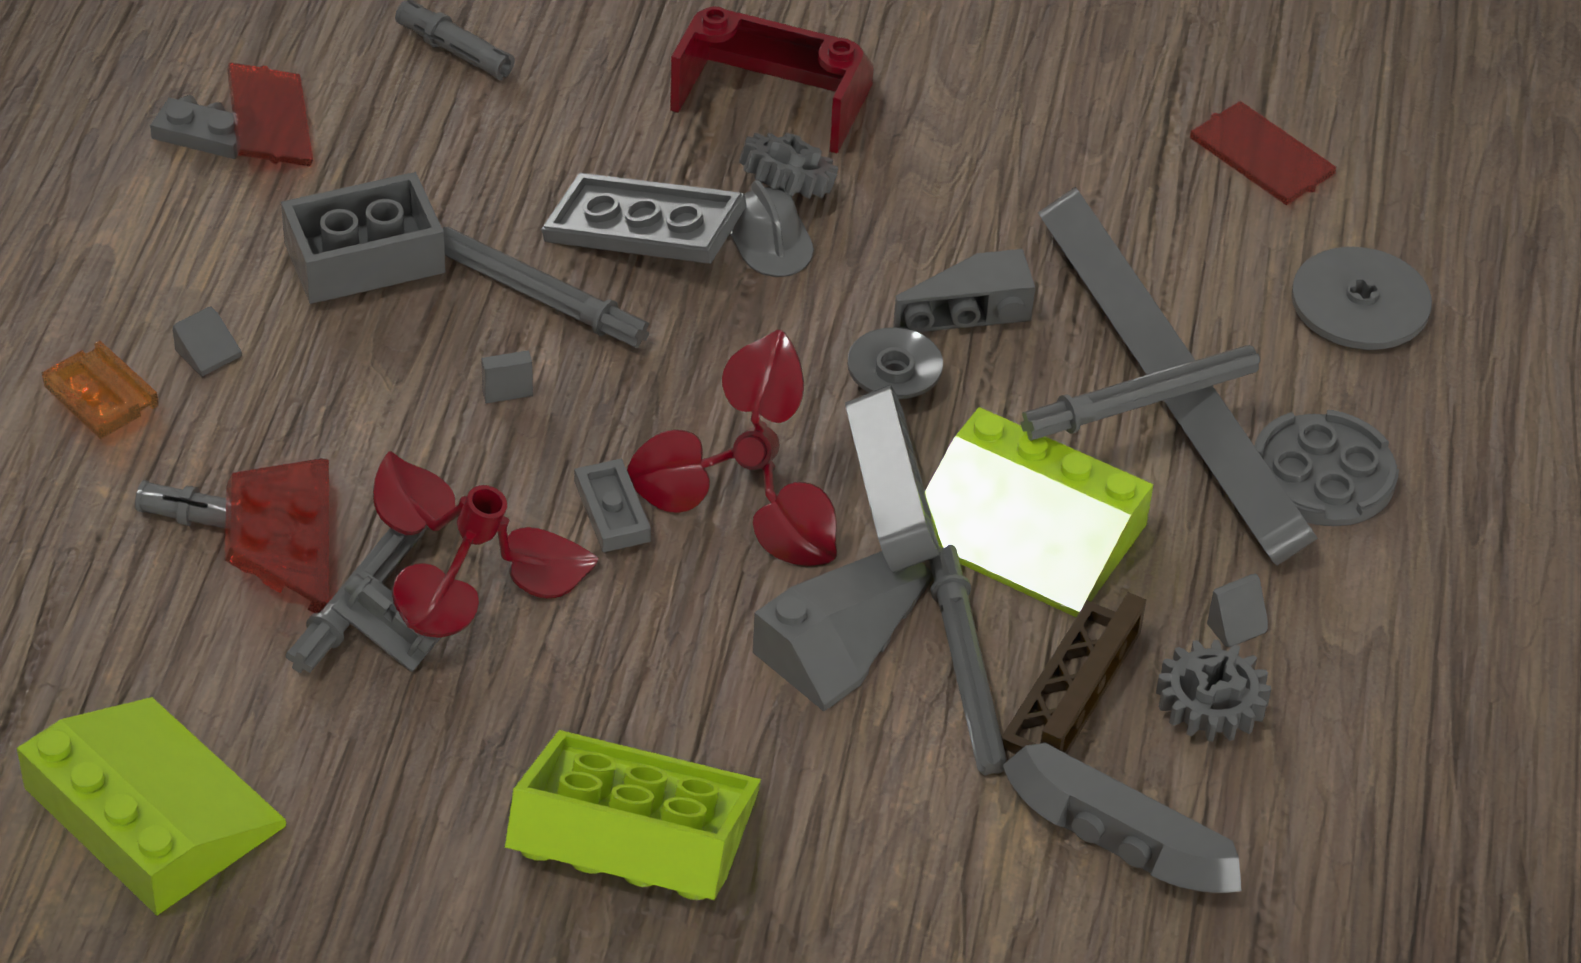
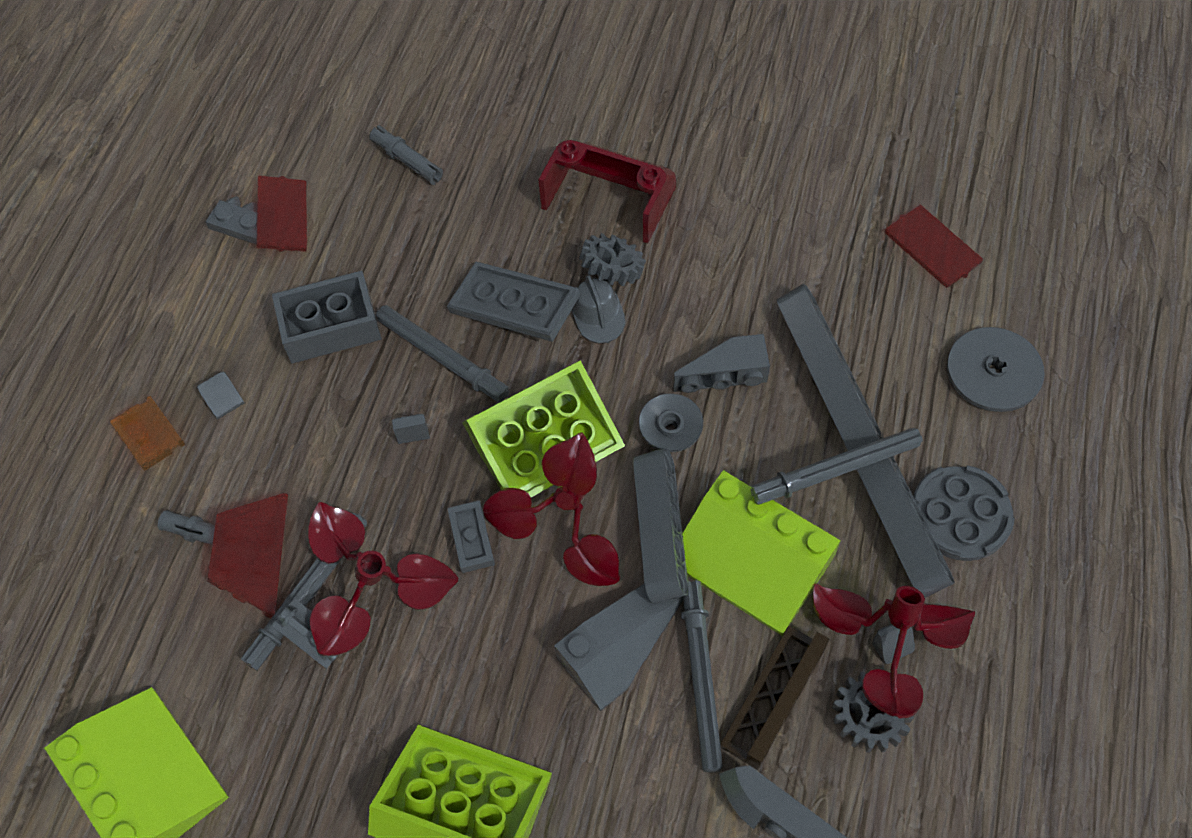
camera: 10 degrees right, 15 degrees up
(674, 368) = (526, 425): none -> lime slope
(1247, 554) = (941, 626): none -> dark red plant

